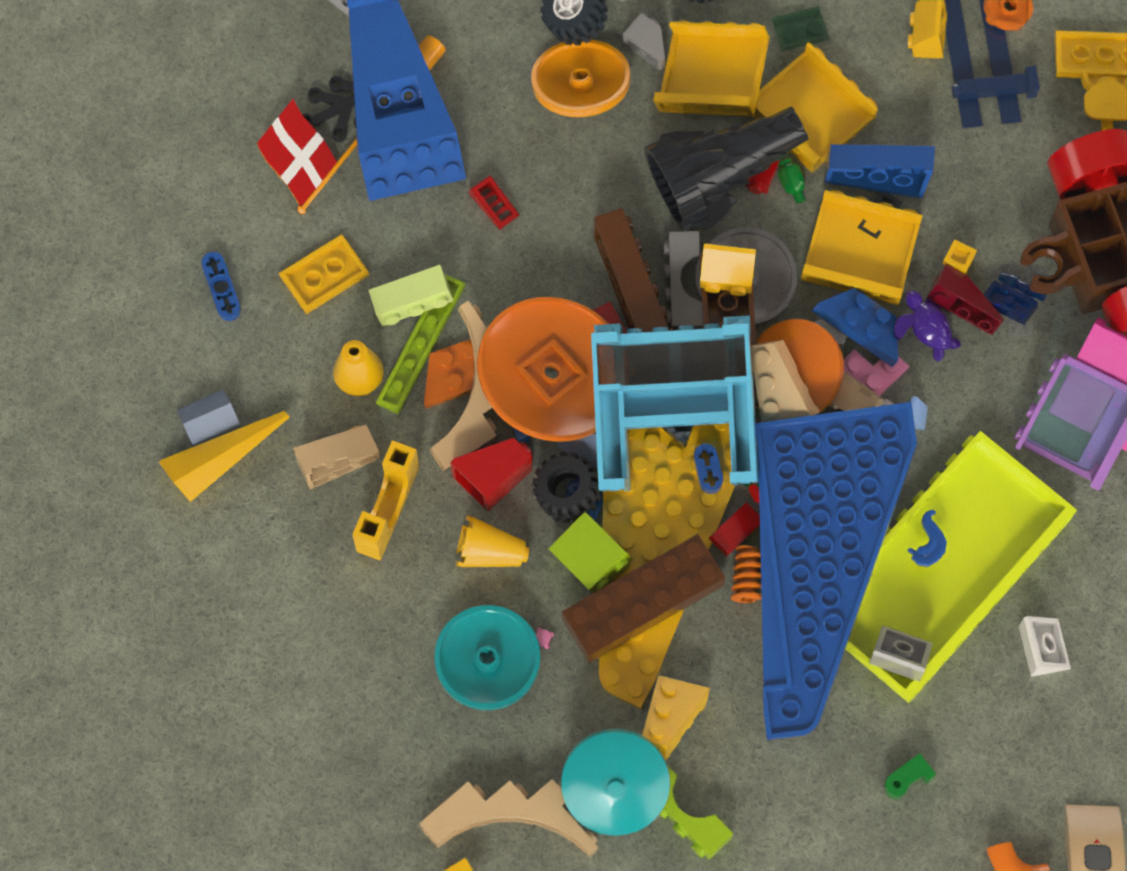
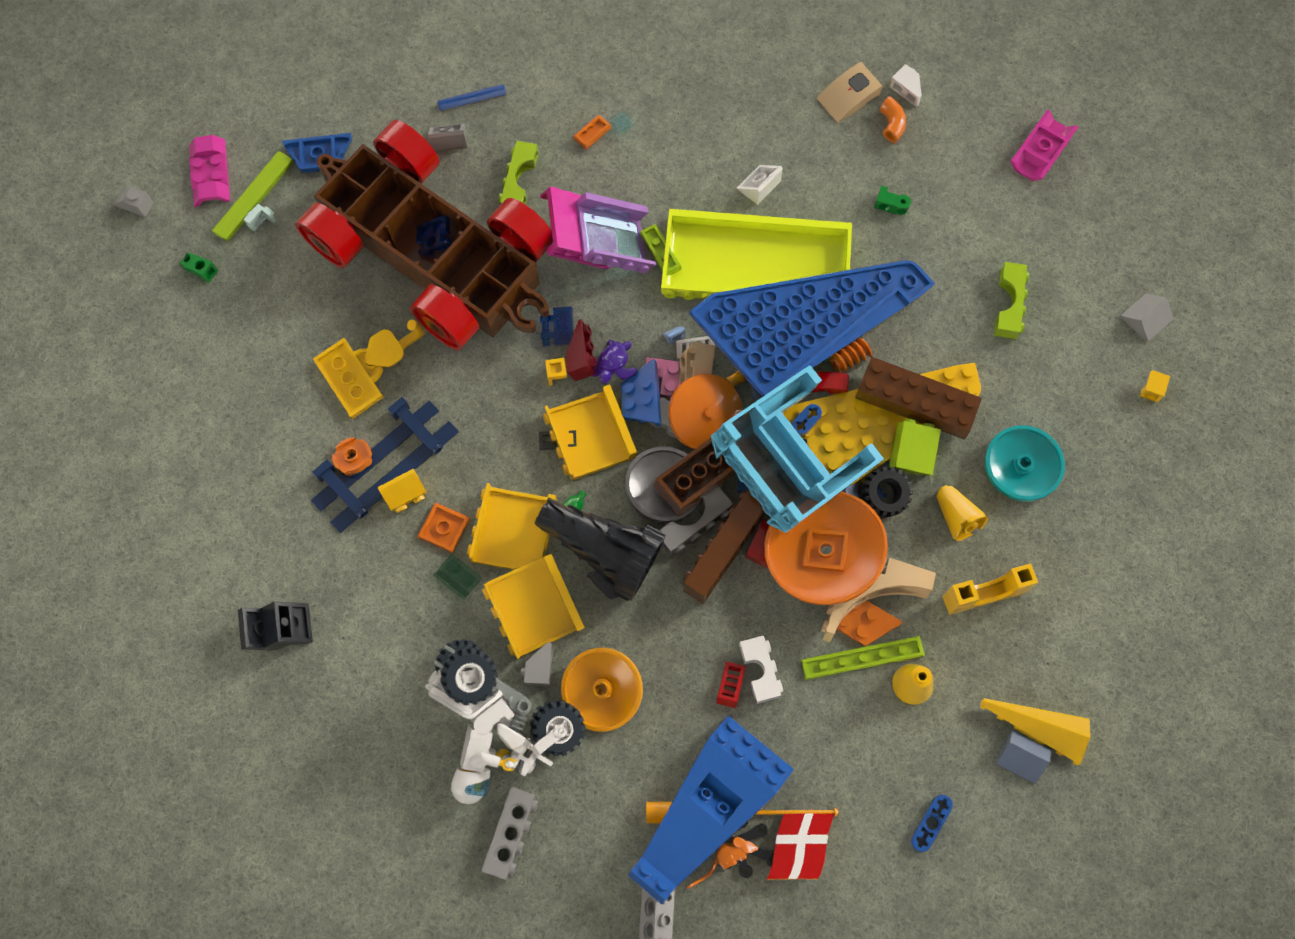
camera: 125 degrees left, 0 degrees up
(324, 274) = (867, 759): yellow tile -> none
(336, 455) = (982, 650): tan wedge -> none
(340, 84) = (728, 855): none -> orange animal
(411, 295) = (841, 683): yellowish green brick -> none
(492, 471) = (914, 541): red slope -> none
(503, 246) = (757, 651): none -> white arch
(509, 804) = (1091, 391): tan arch -> none
(544, 637) = (980, 445): bright pink piece -> none
(615, 782) = (1037, 334): teal dish -> none
(673, 712) = (973, 337): yellow wedge -> none
(727, 269) = (684, 476): yellow slope -> none
(778, 383) = (729, 400): tan wedge -> none
(863, 48) = (443, 527): none -> orange tile
(881, 168) = (529, 453): blue wedge -> none
(901, 653) = (833, 238): light grey slope -> none
(935, 548) = (753, 264): blue piece -> none
(1053, 473) = (656, 244): none -> lime tile

